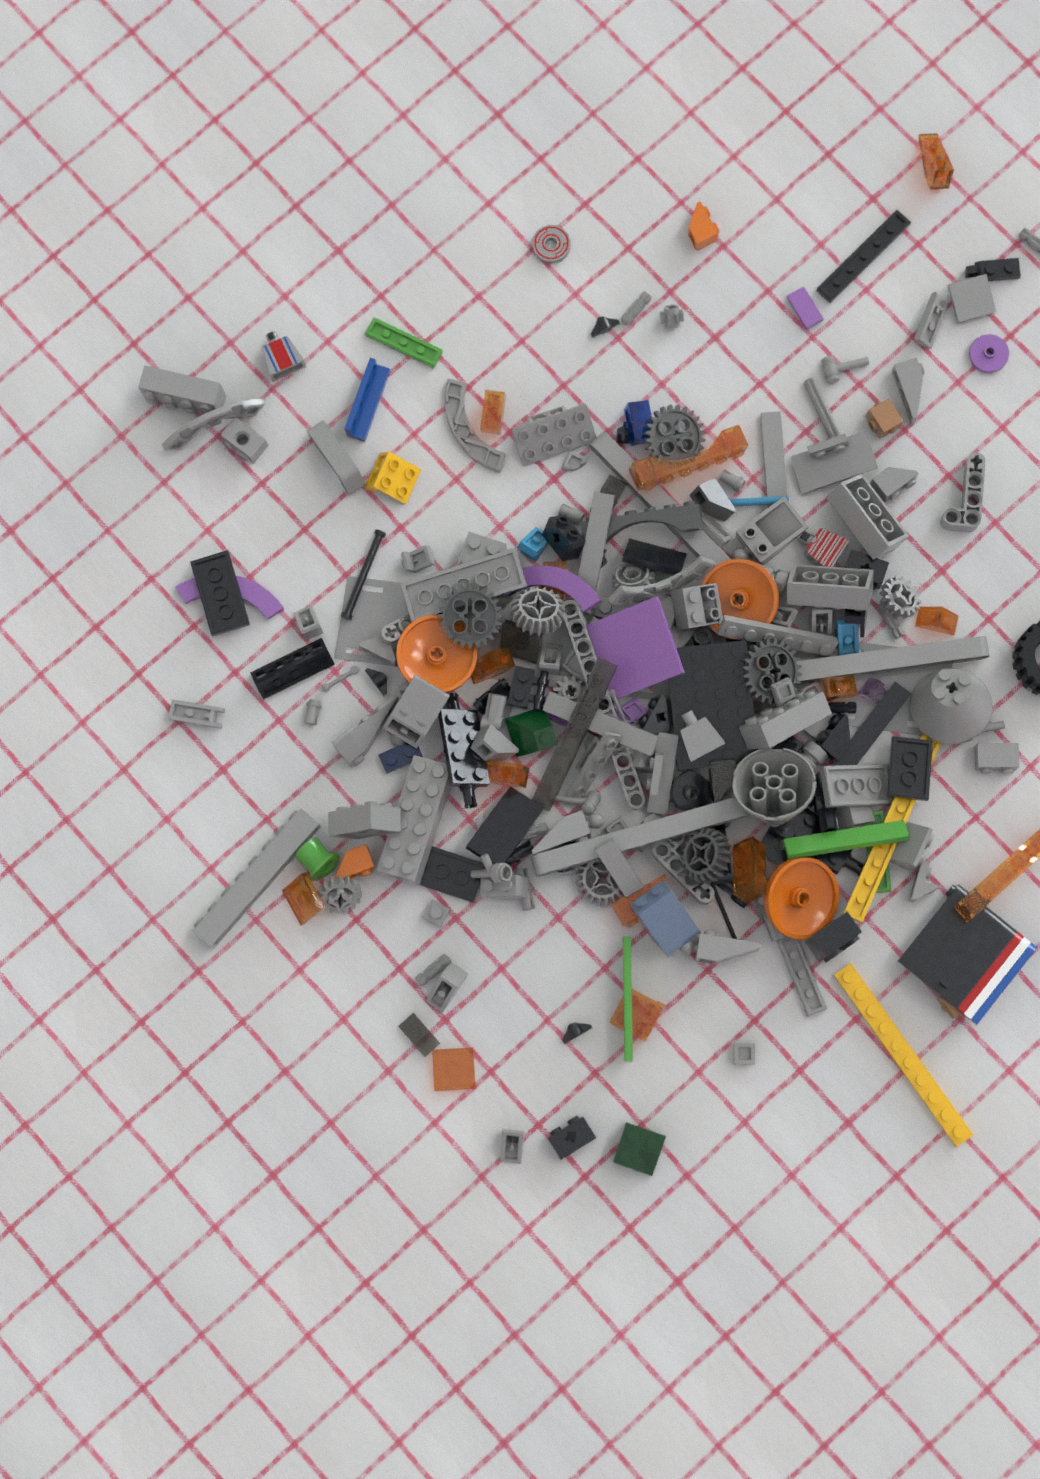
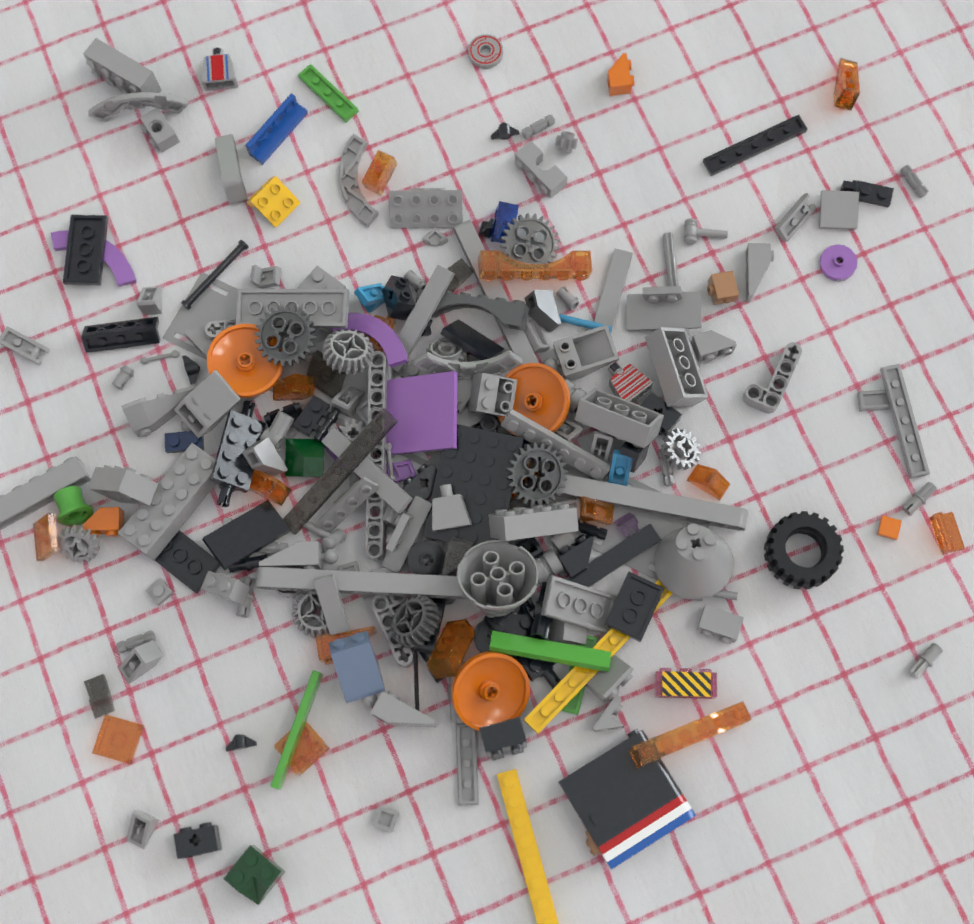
camera: 15 degrees right, 5 degrees down
(498, 872) = (220, 571): light grey piece -> none
(668, 364) = (549, 181): none -> light grey arch
(783, 690) = (540, 495): light grey tile -> none
(805, 308) = (687, 172): medium lavender tile -> none
(984, 826) = (685, 684): none -> brick

